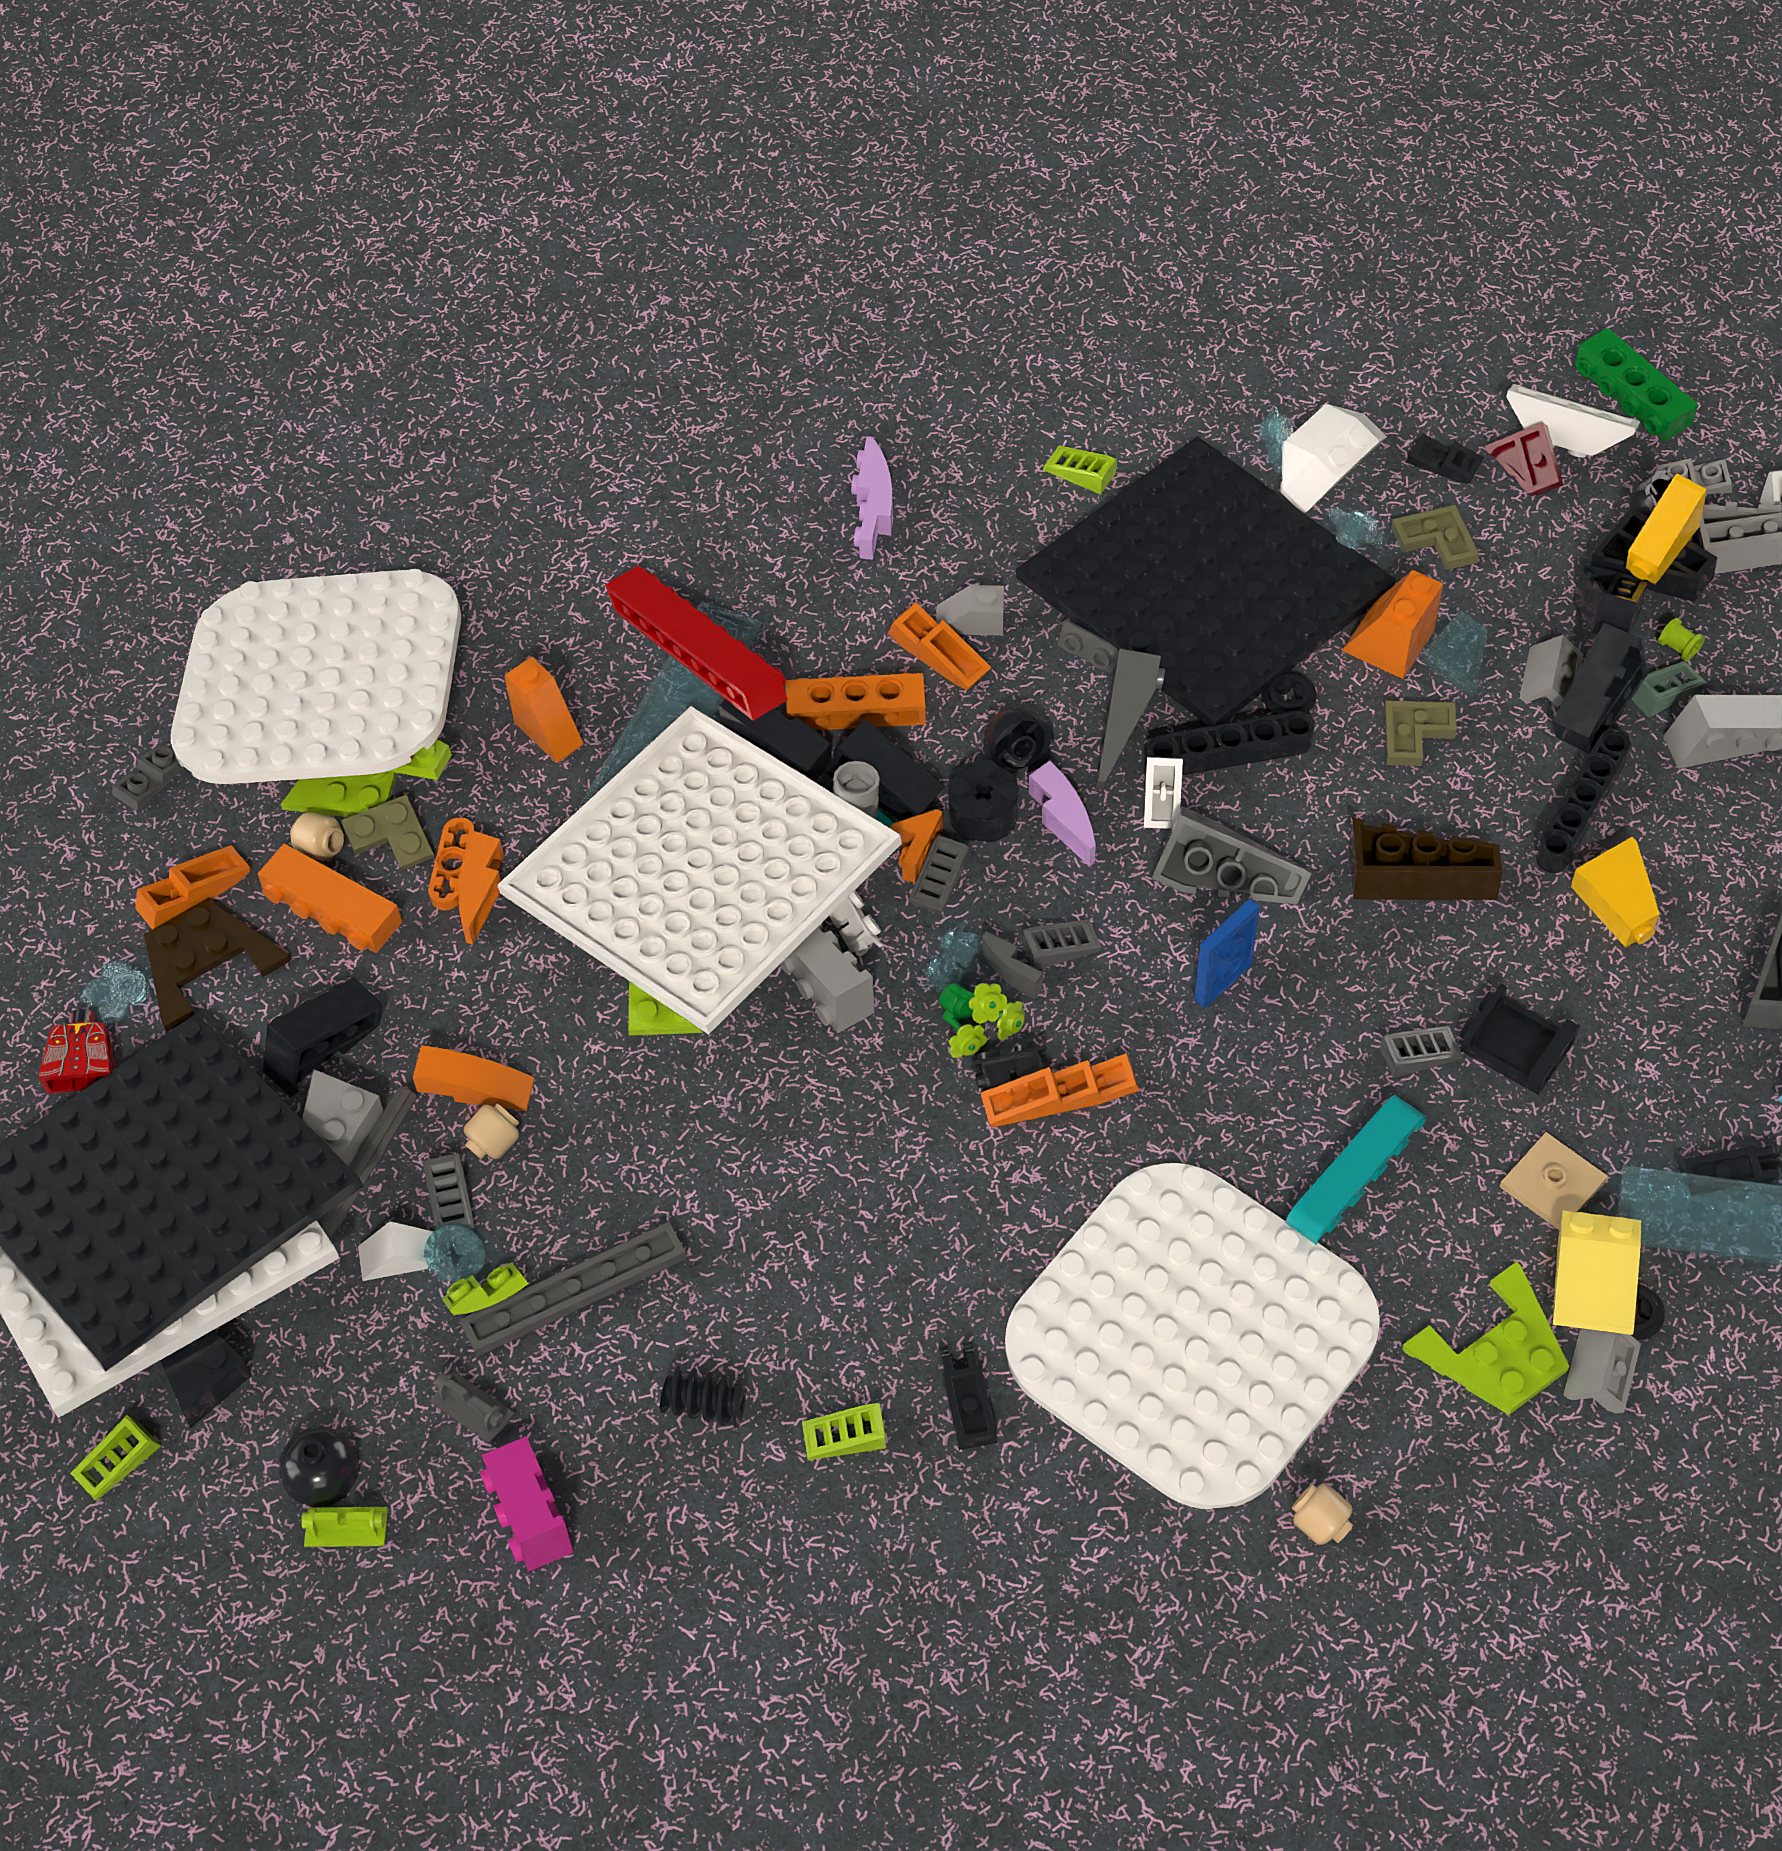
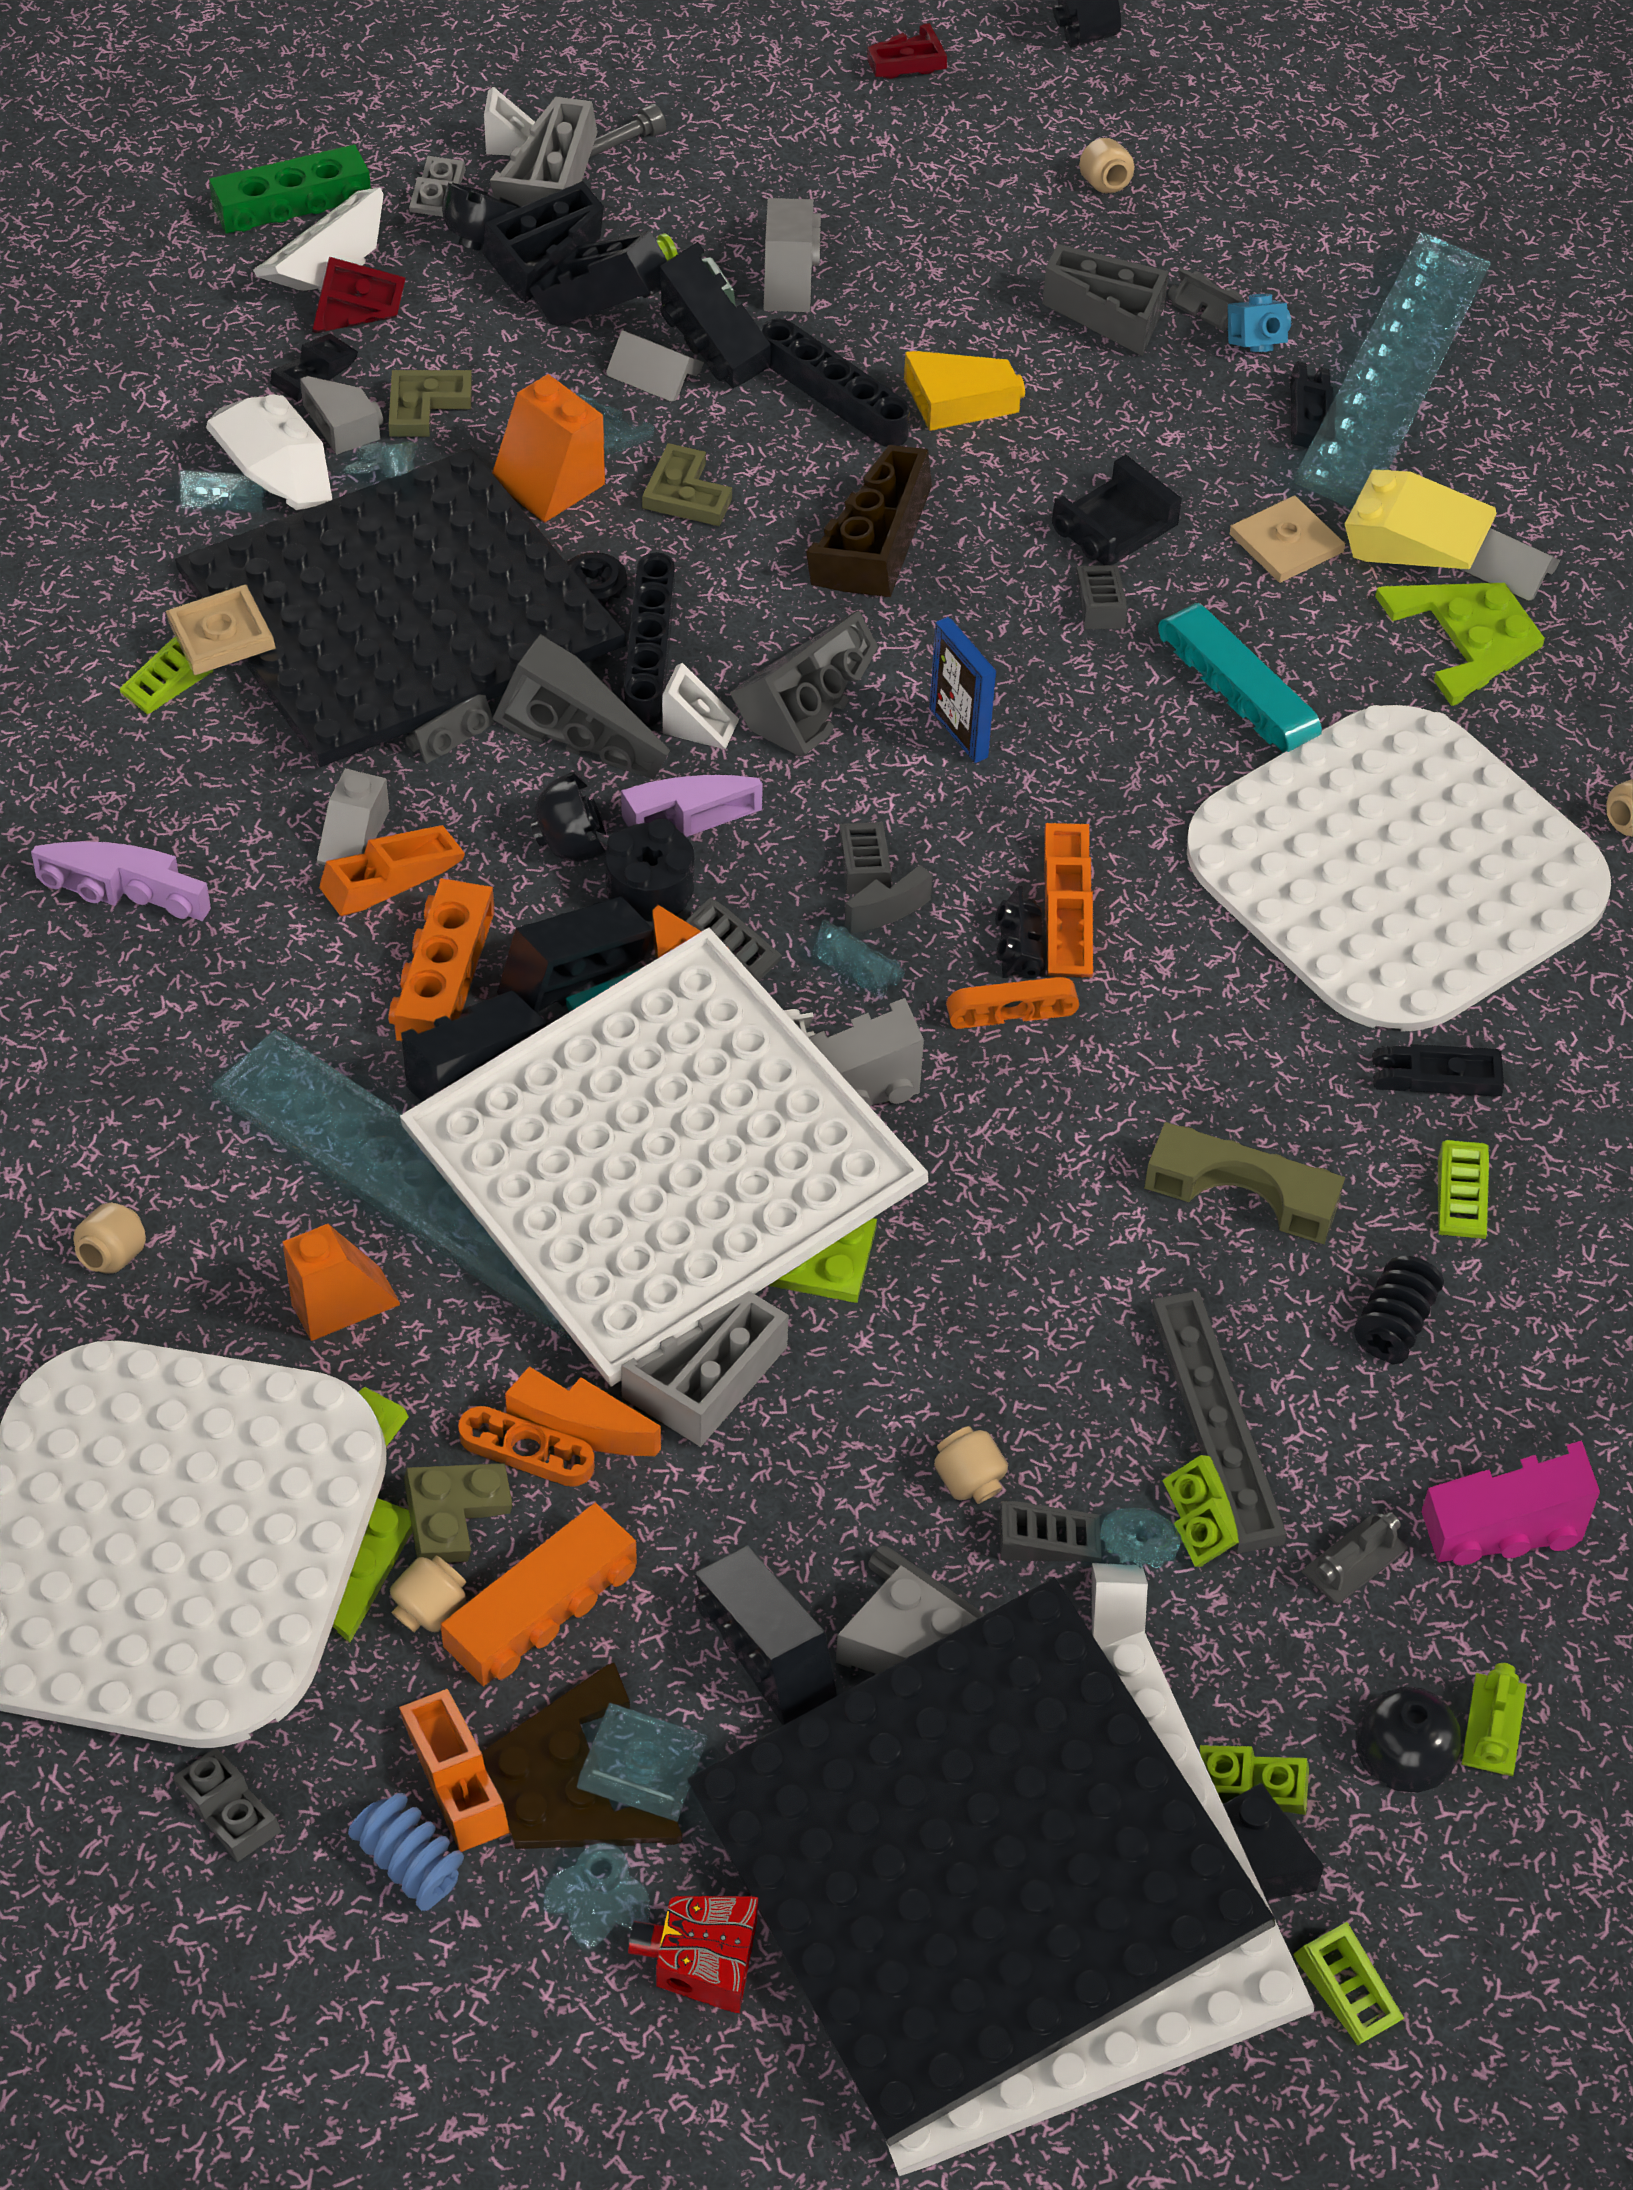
camera: 80 degrees left, 5 degrees down
(122, 875) = (407, 1850): none -> medium blue piece
(211, 987) = (642, 1762): none -> clear light blue plate
(269, 1368) = (1238, 1770): none -> lime slope
(471, 1079) = (883, 1477): orange slope -> none
(529, 948) = (708, 1370): none -> light grey wedge
(559, 585) = (109, 1238): none -> tan head
(697, 642) = (313, 1076): red brick -> none
(796, 1308) = (1193, 1162): none -> olive arch
(858, 785) = (604, 962): light grey wheel -> none
(933, 1064) = (985, 1004): none -> orange beam
(982, 1005) = (925, 957): lime plant -> none
(1117, 476) = (220, 629): none -> tan plate
(1390, 488) = (341, 413): none -> light grey slope
(1667, 529) = (547, 191): yellow slope -> none

